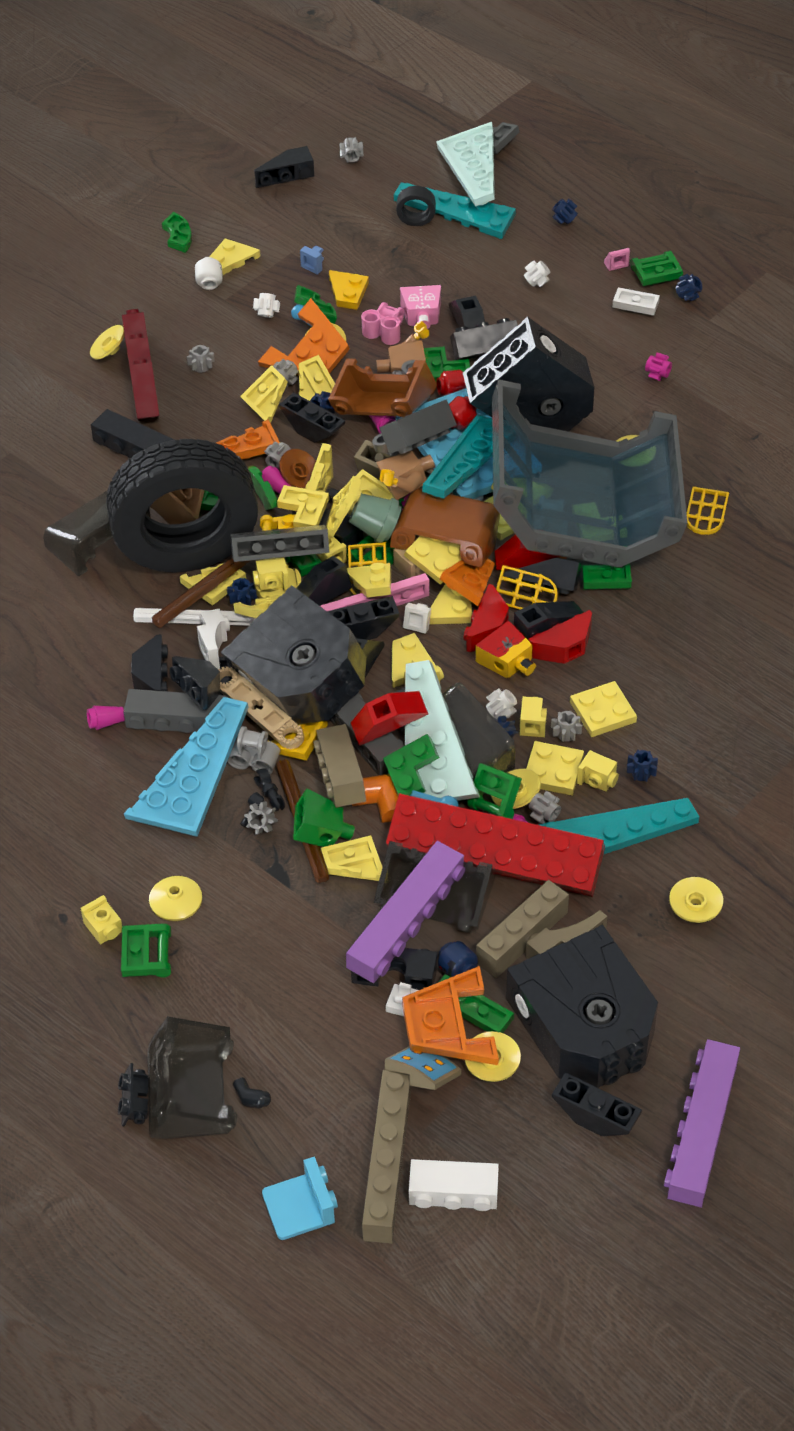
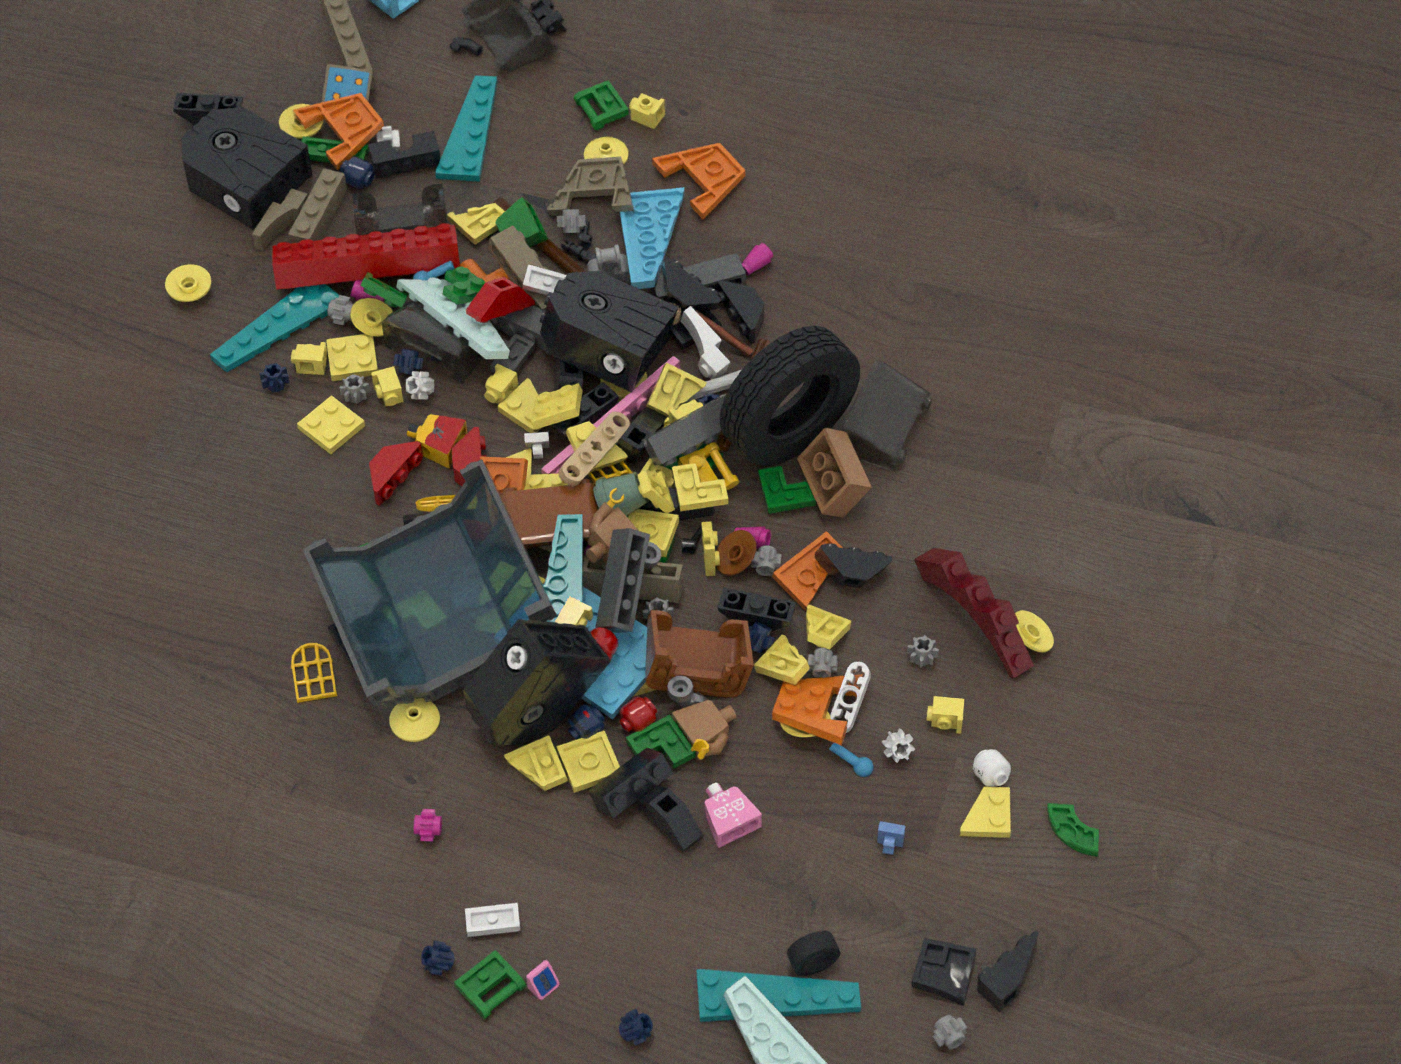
camera: 155 degrees right, 5 degrees up
(81, 826) = (711, 169): none -> orange wing
(124, 434) = (919, 527): black brick -> none
(183, 647) = (726, 336): none -> copper bar
(208, 424) = (851, 565): none -> black slope
(208, 857) = (595, 178): none -> dark tan wing
(214, 315) = (946, 713): none -> light yellow brick
(263, 488) = (760, 516): green tile -> none
(279, 340) = (862, 682): none -> white beam
(303, 295) = (848, 776): green tile -> none
(303, 979) = (468, 140): none -> teal wing
(329, 730) = (541, 280): none -> white plate
(330, 183) = (944, 969): none -> black plate
(348, 288) = (829, 818): yellow wing -> none
(375, 557) = (586, 458): none -> tan piece
(383, 323) = (757, 777): bright pink piece -> none
(385, 618) = (556, 406): none -> light yellow plate
(405, 912) = (407, 170): medium lavender brick -> none
(453, 1184) = (292, 37): white brick -> none
(474, 420) = (575, 613): none -> light yellow brick
(537, 273) = (622, 910): white gear -> none
(543, 616) = (414, 479): black slope -> none
(703, 1123) = (128, 134): medium lavender brick -> none

